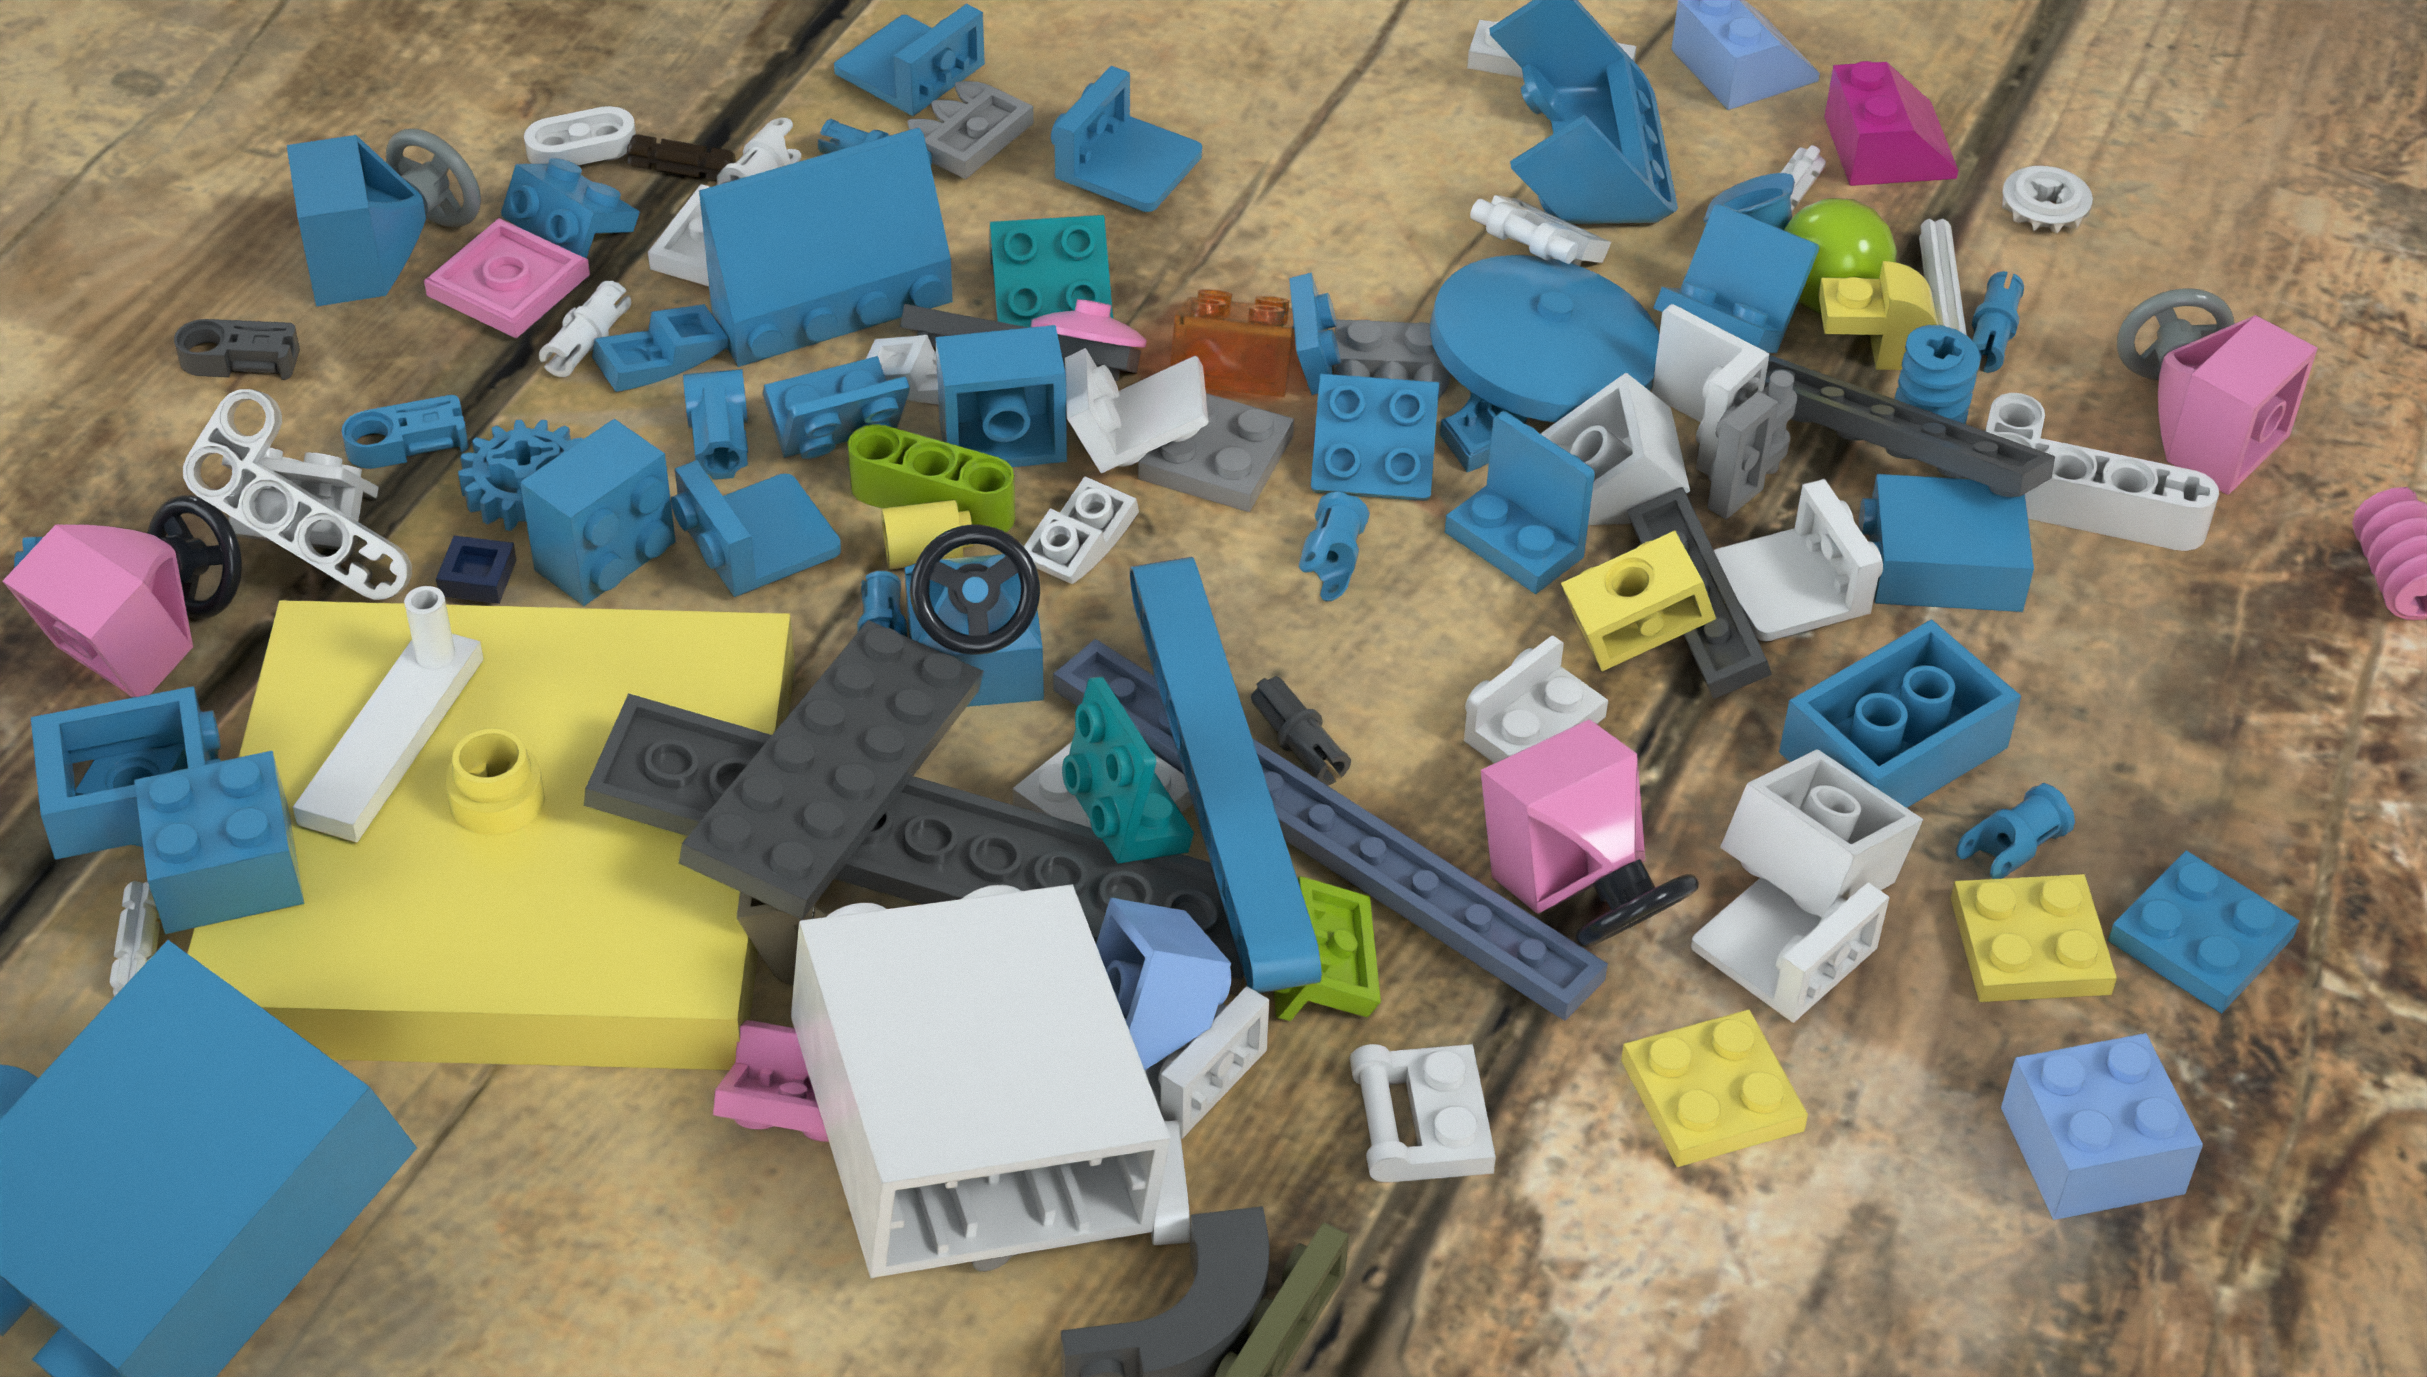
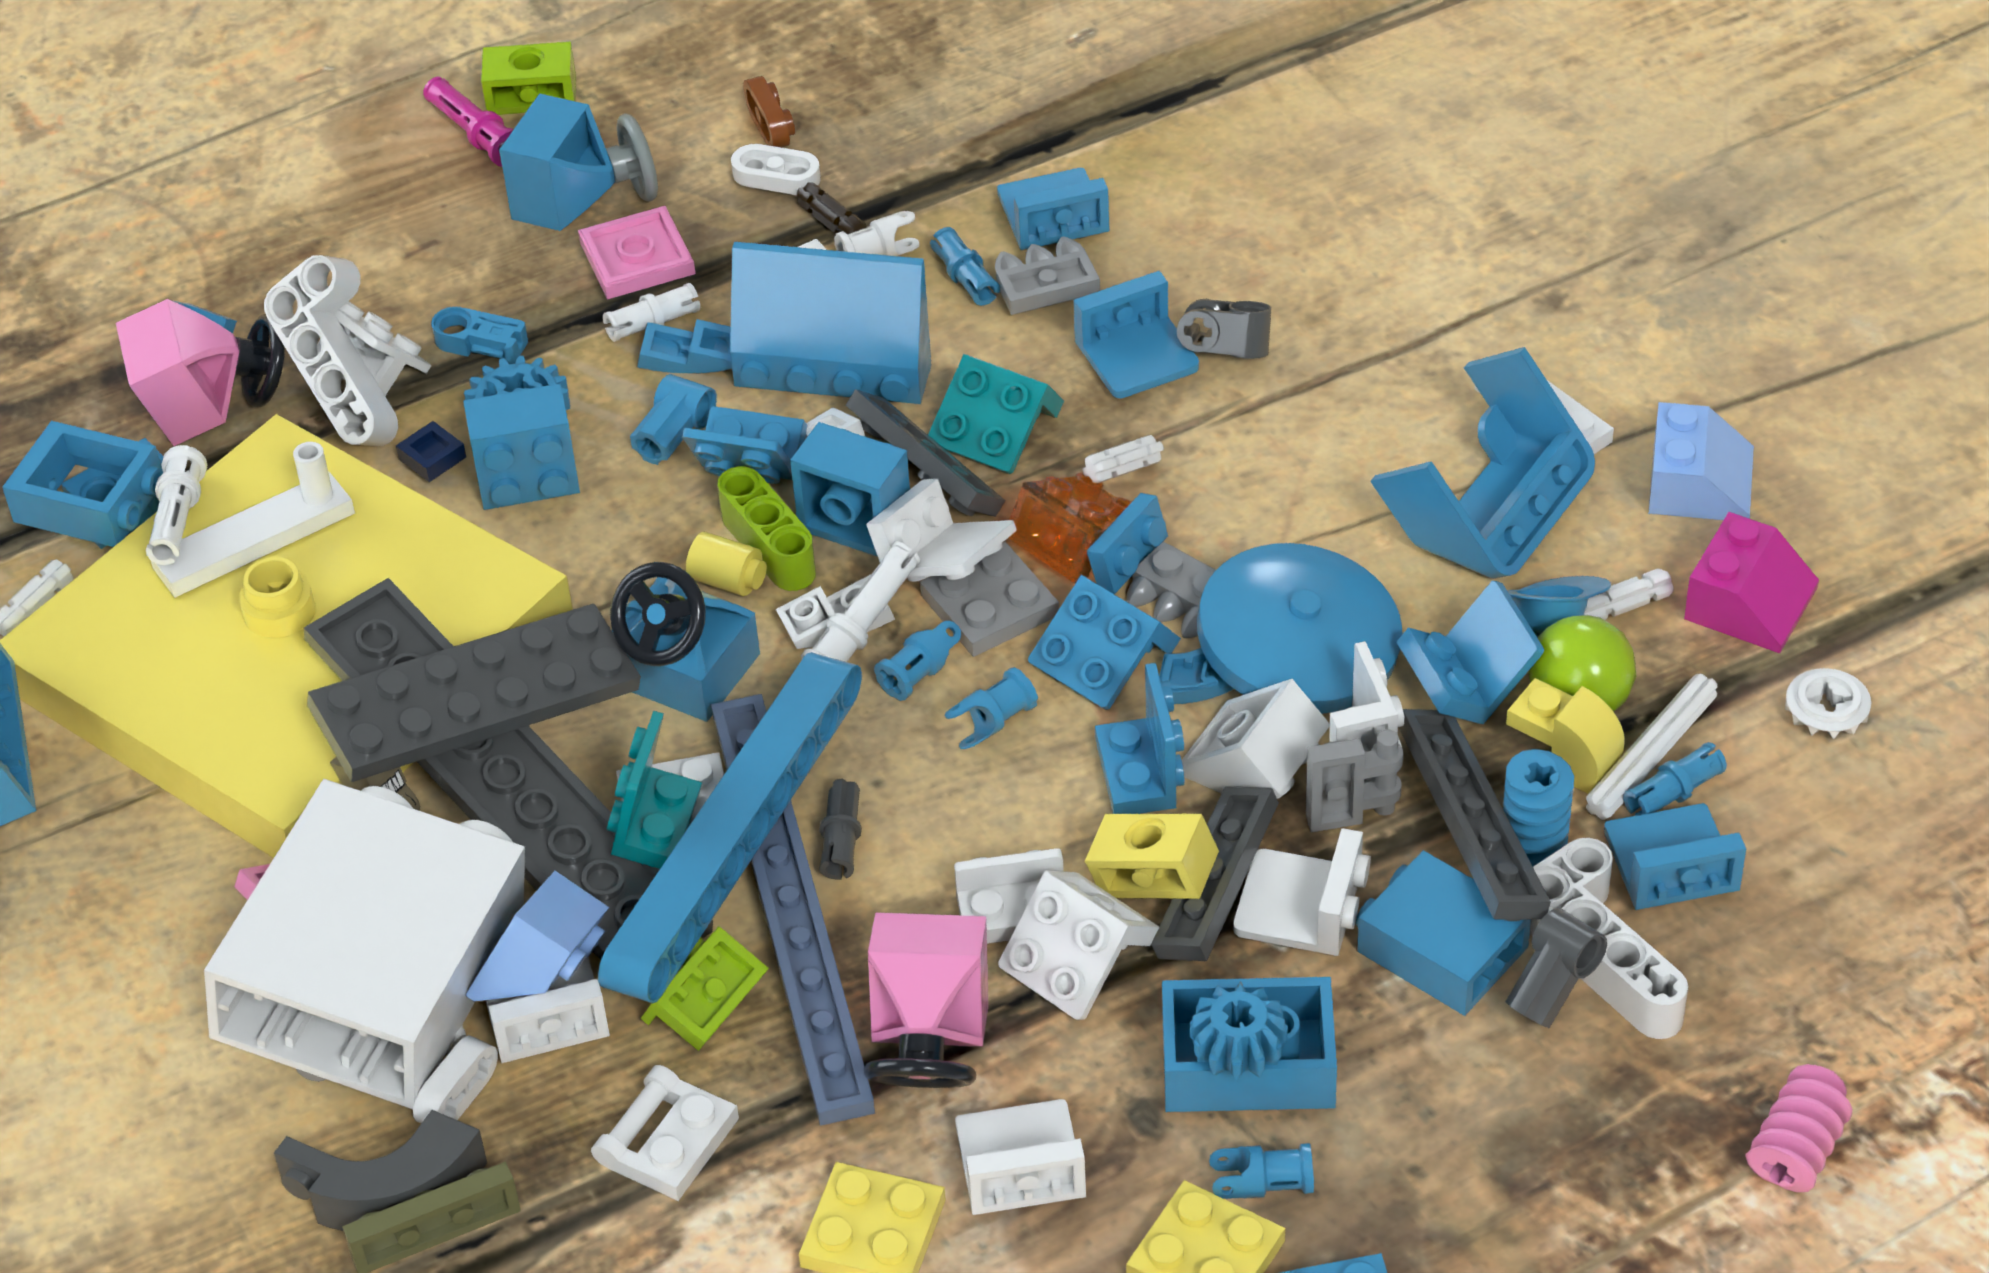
camera: 40 degrees right, 0 degrees up
(200, 224) = (483, 128): none -> dark pink pin
(208, 154) = (518, 73): none -> lime brick
(218, 842) = (84, 555): dark azure brick -> none
(240, 347) = (435, 229): dark grey piece -> none
(265, 724) = (177, 494): none -> white pin
(517, 86) = (765, 109): none -> dark orange plate
(564, 205) = (719, 213): dark azure bracket -> none
(755, 531) = (620, 509): dark azure bracket -> none
(1092, 322) = (970, 467): bright pink dish -> none
(1125, 534) = (849, 629): none -> white pin
(1211, 99) = (1233, 330): none -> dark grey piece
(1212, 540) = (924, 652): none -> dark azure piece
(1225, 260) = (1122, 459): none -> white axle
(1541, 231) = (1375, 542): white plate -> none
(1654, 710) = (1072, 940): none -> white bracket
(1819, 832) = (1100, 1087): white brick -> none
(1925, 702) = (1238, 1031): none -> dark azure gear
(2070, 381) = (1675, 856): none -> dark azure bracket
(2090, 504) = (1562, 955): none -> dark grey piece
(2222, 386) = (1779, 921): bright pink piece -> none

